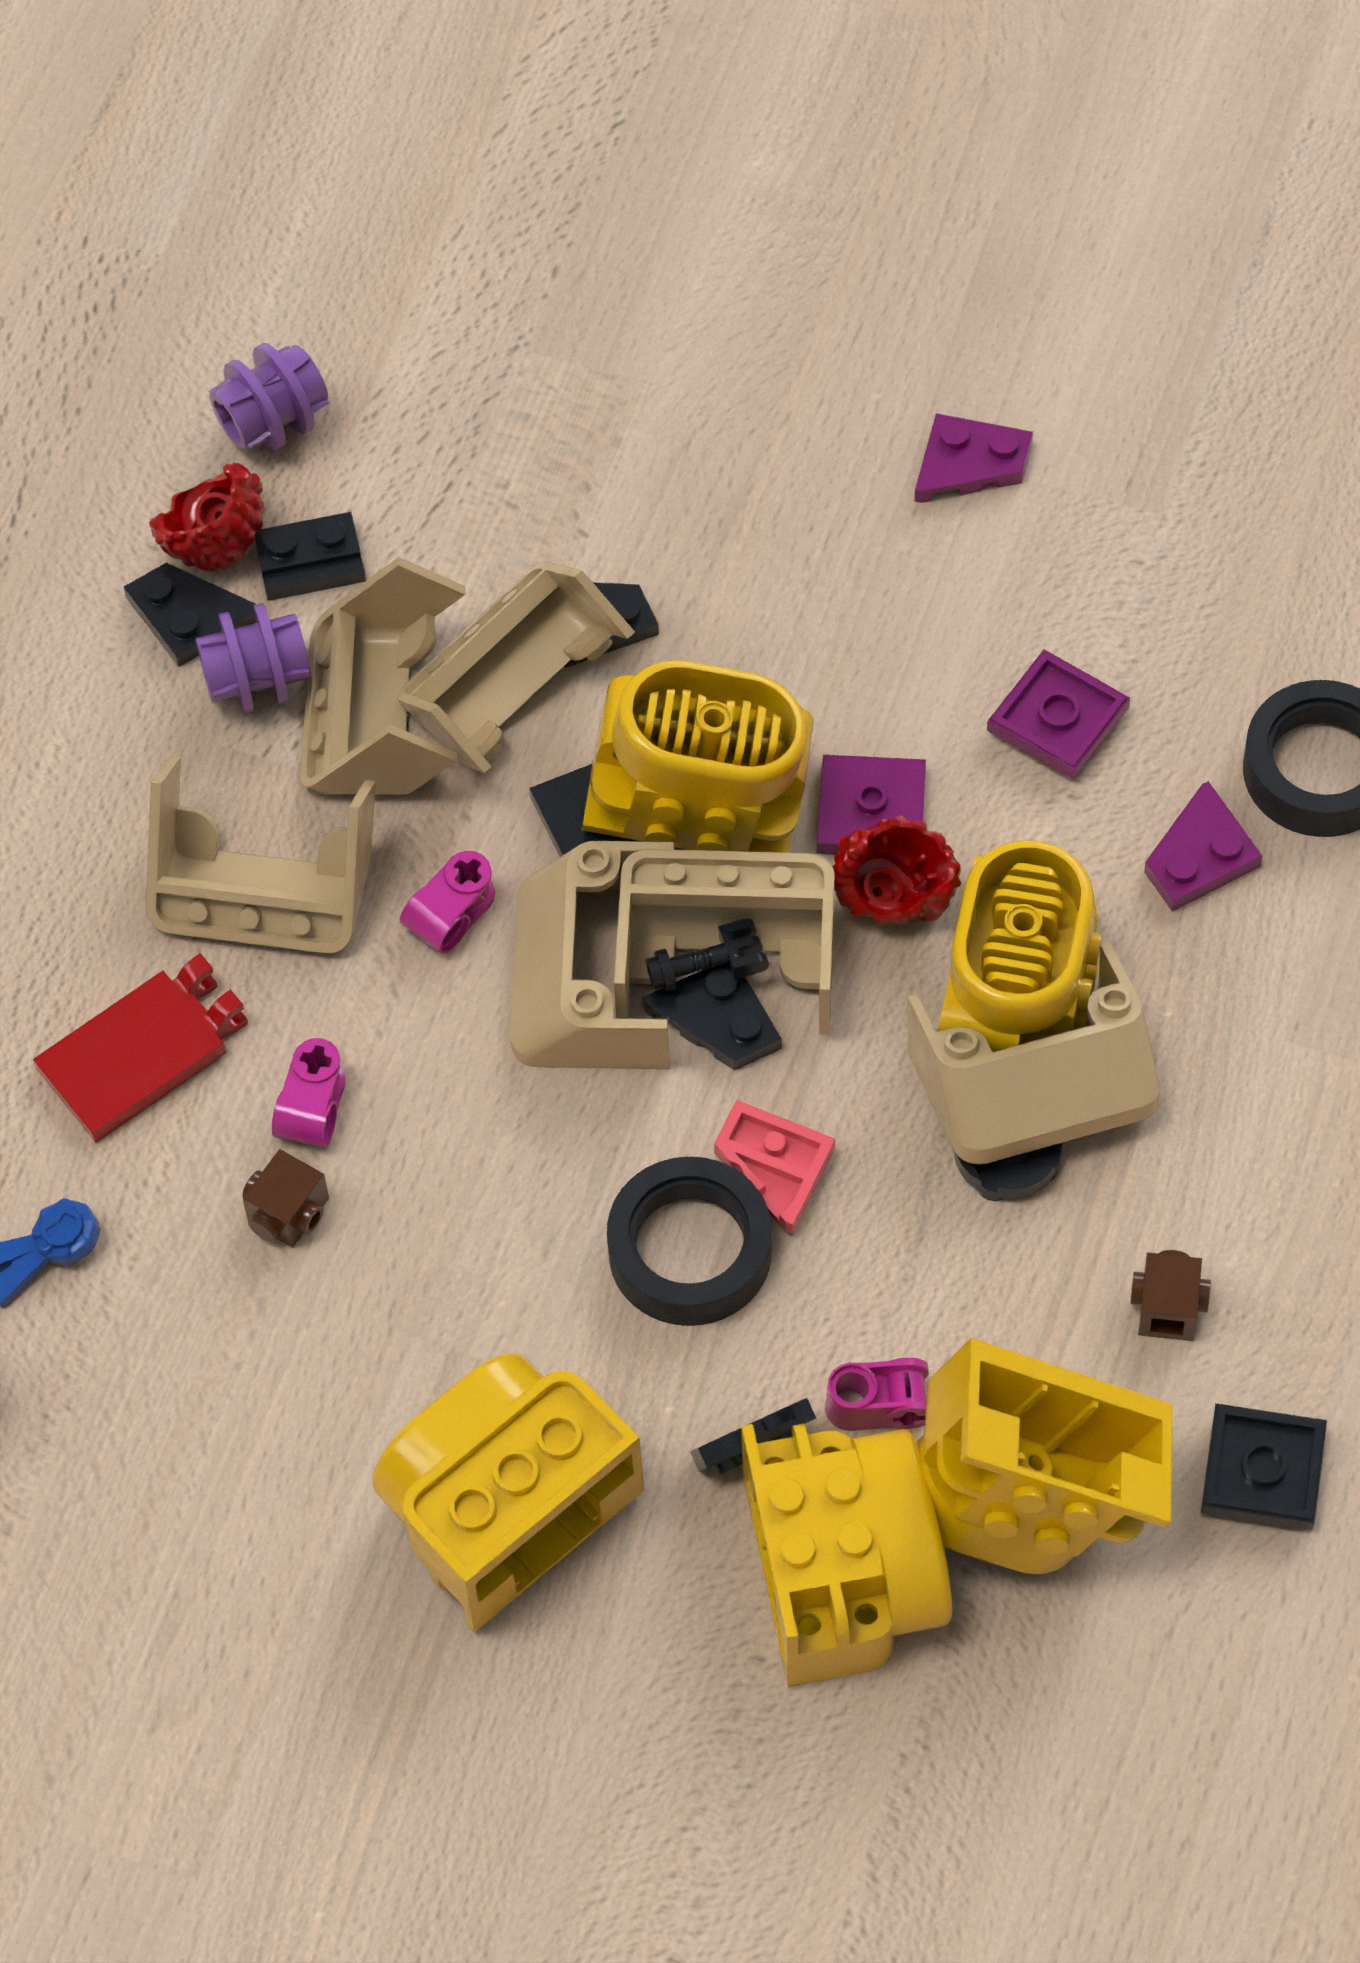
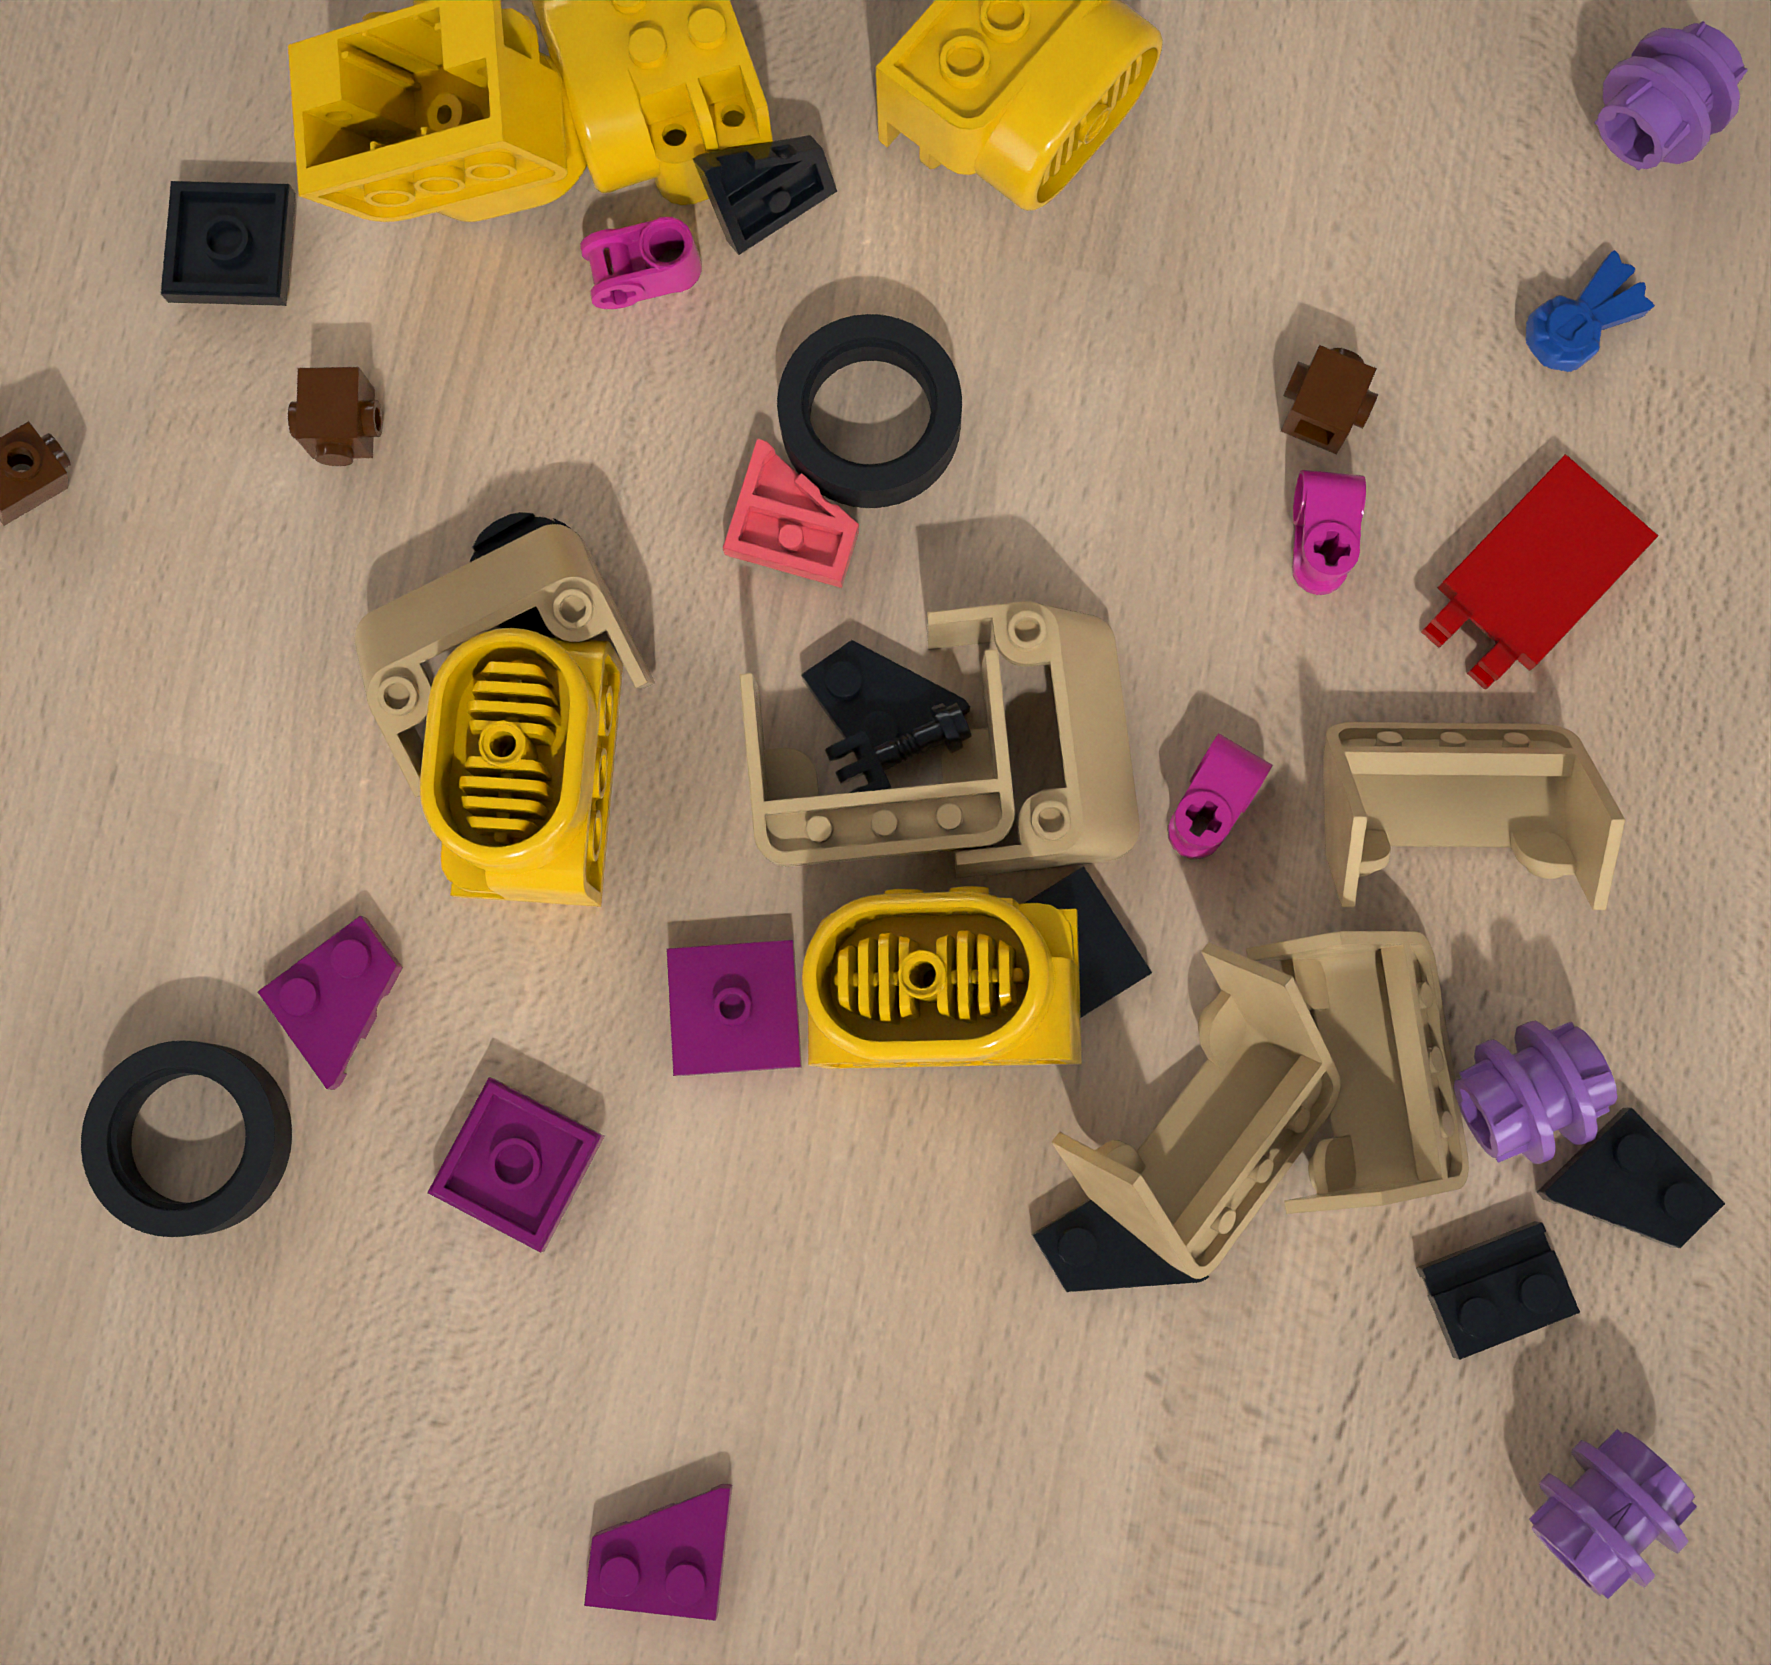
camera: 175 degrees right, 20 degrees up
(213, 520) = (1642, 1303): red hair -> none
(896, 872) = (685, 888): red hair -> none

